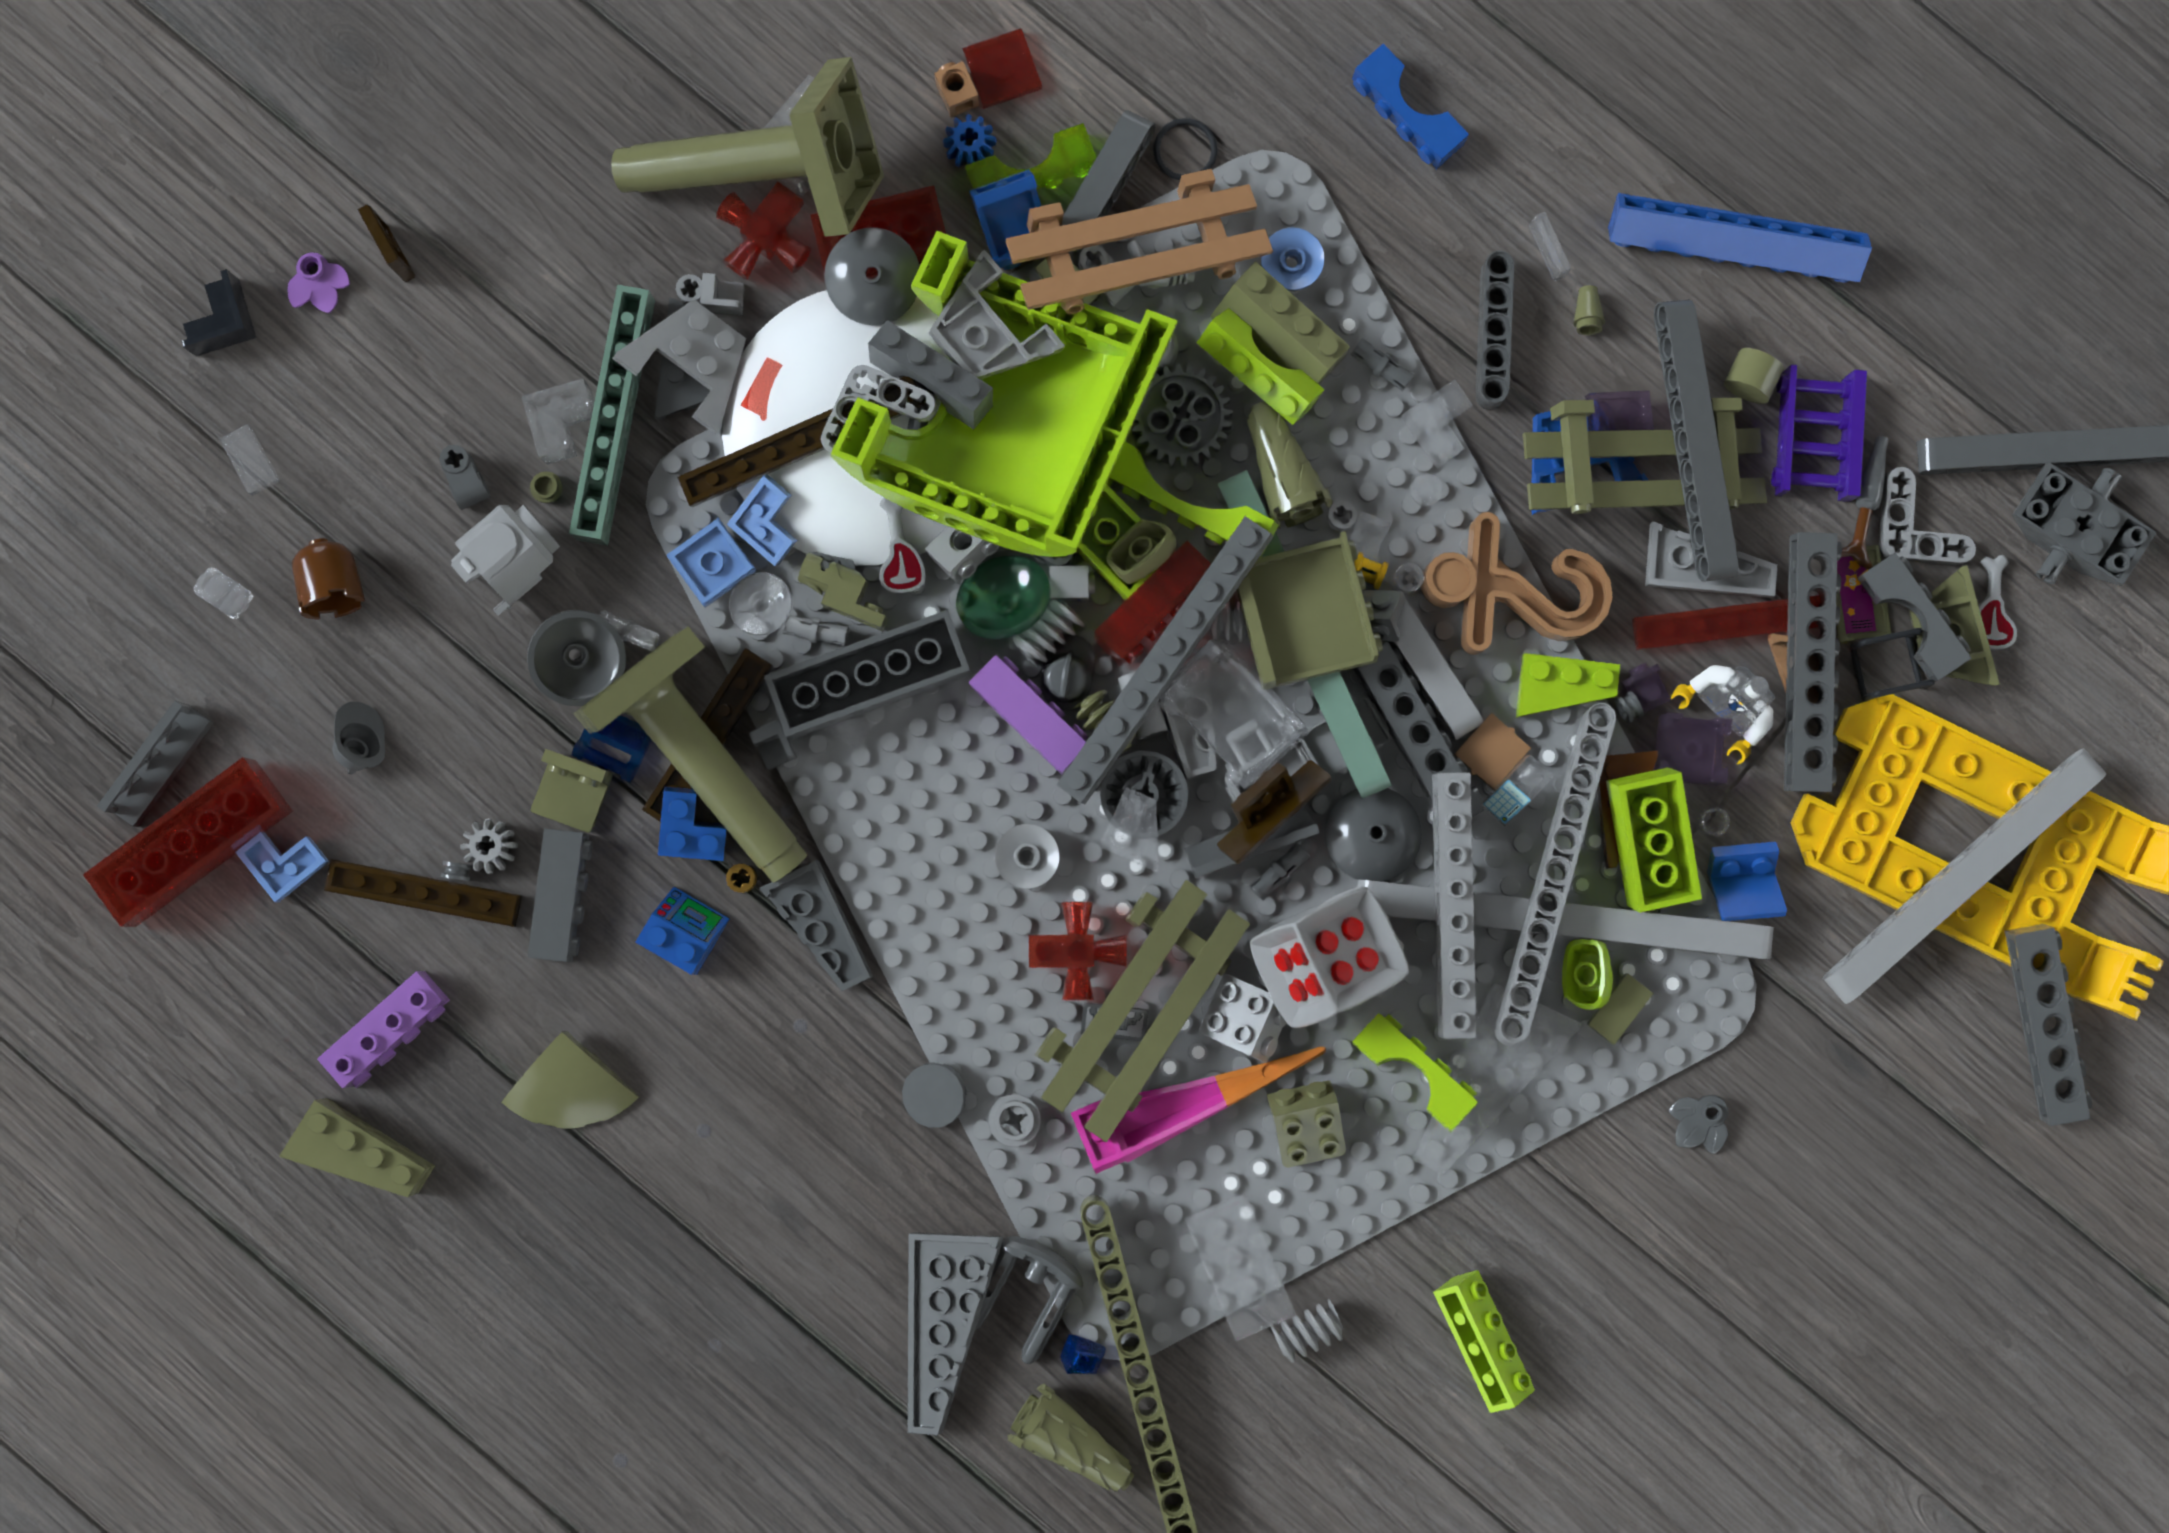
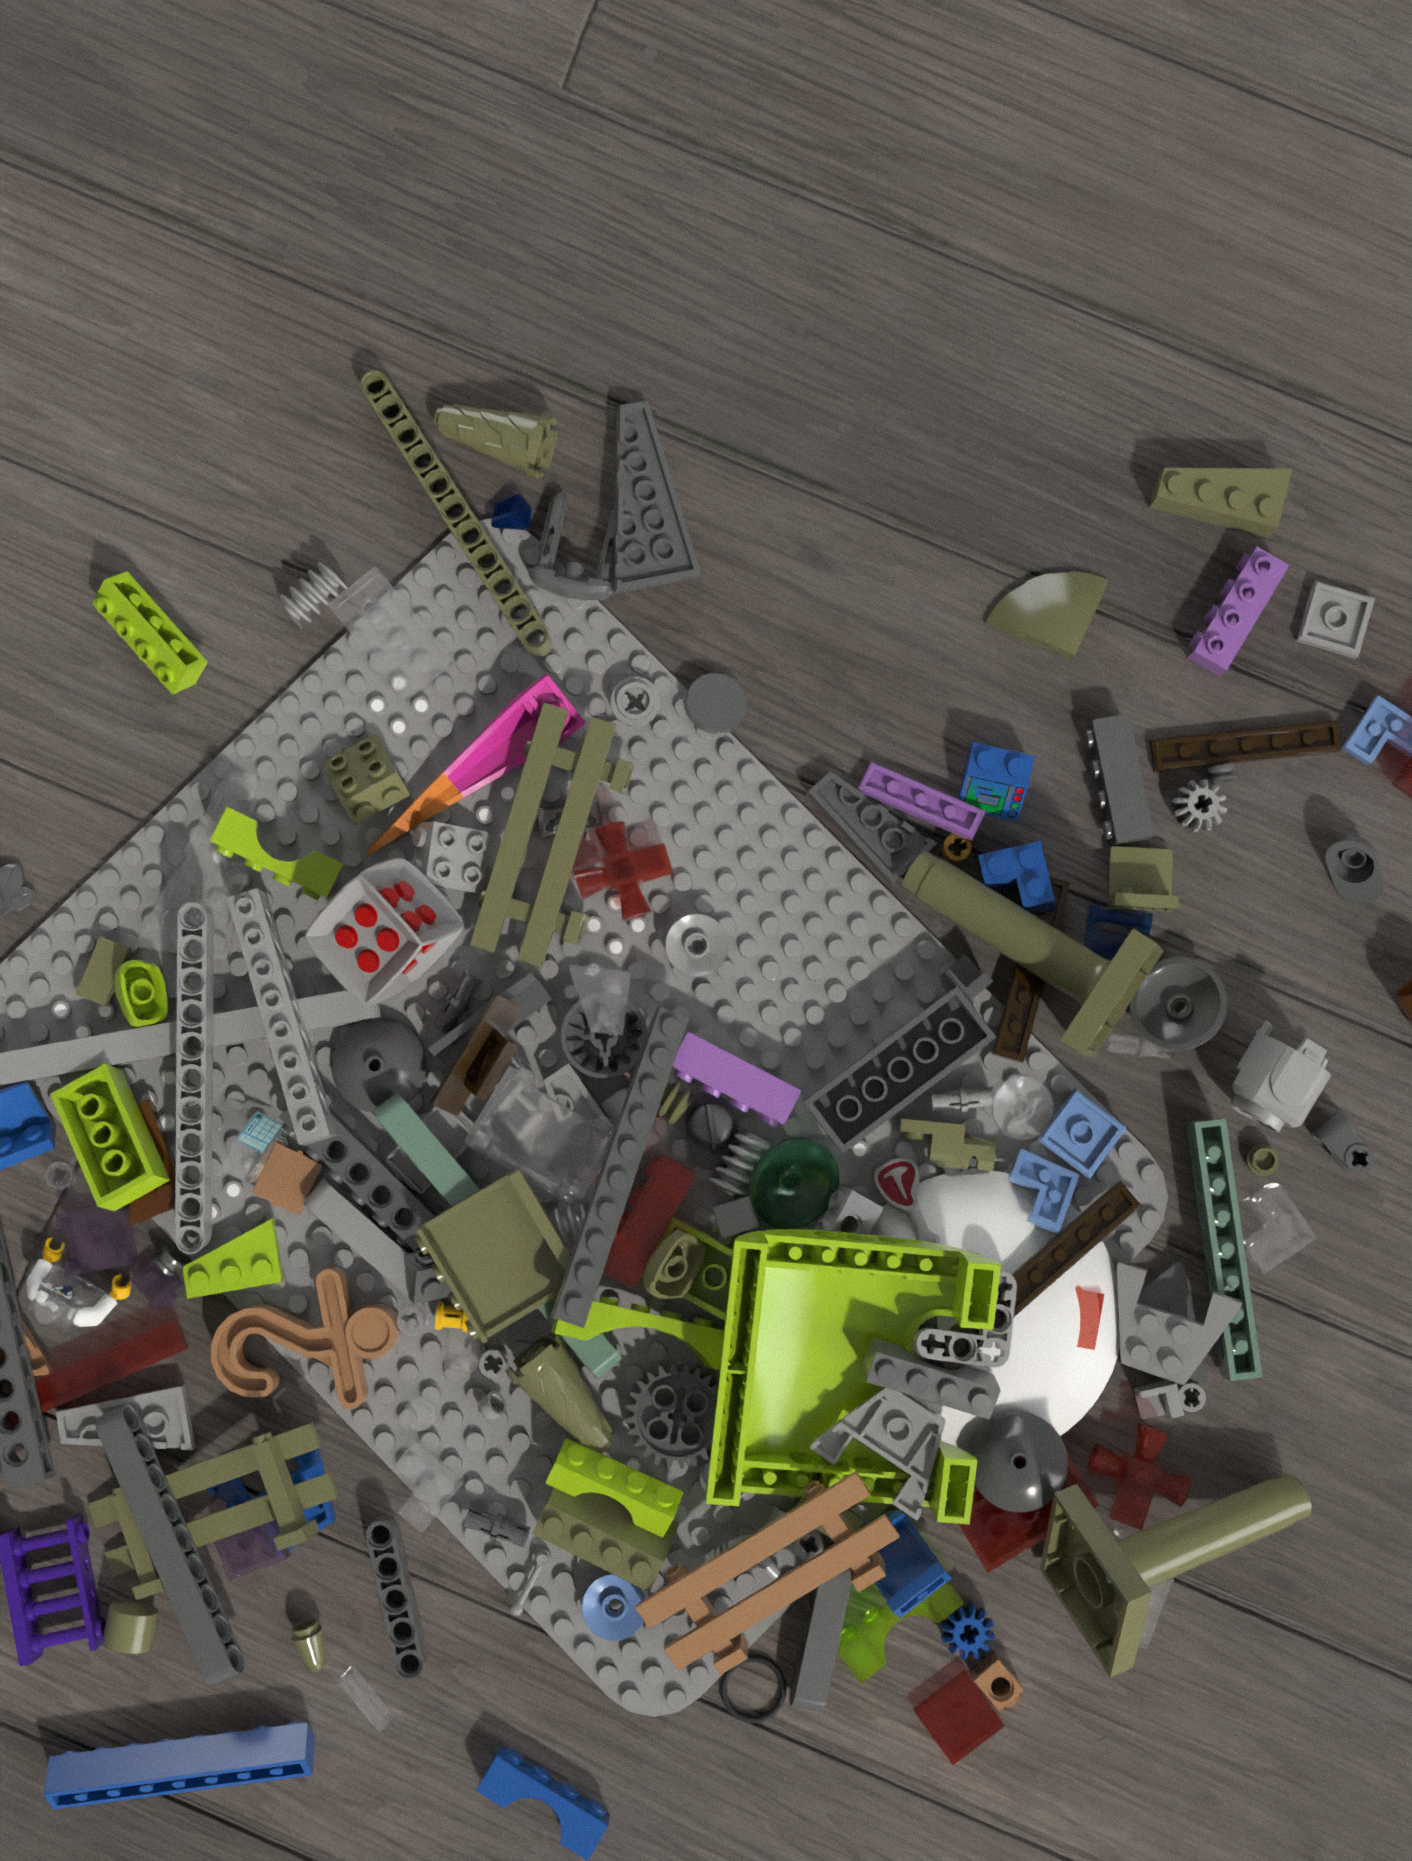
camera: 170 degrees right, 0 degrees up
(289, 993) = (1335, 619): none -> light grey tile
(761, 934) = (921, 801): none -> medium lavender tile
(1348, 321) = (542, 1561): none -> light grey hinge
(1354, 471) = (495, 1411): none -> light grey hinge

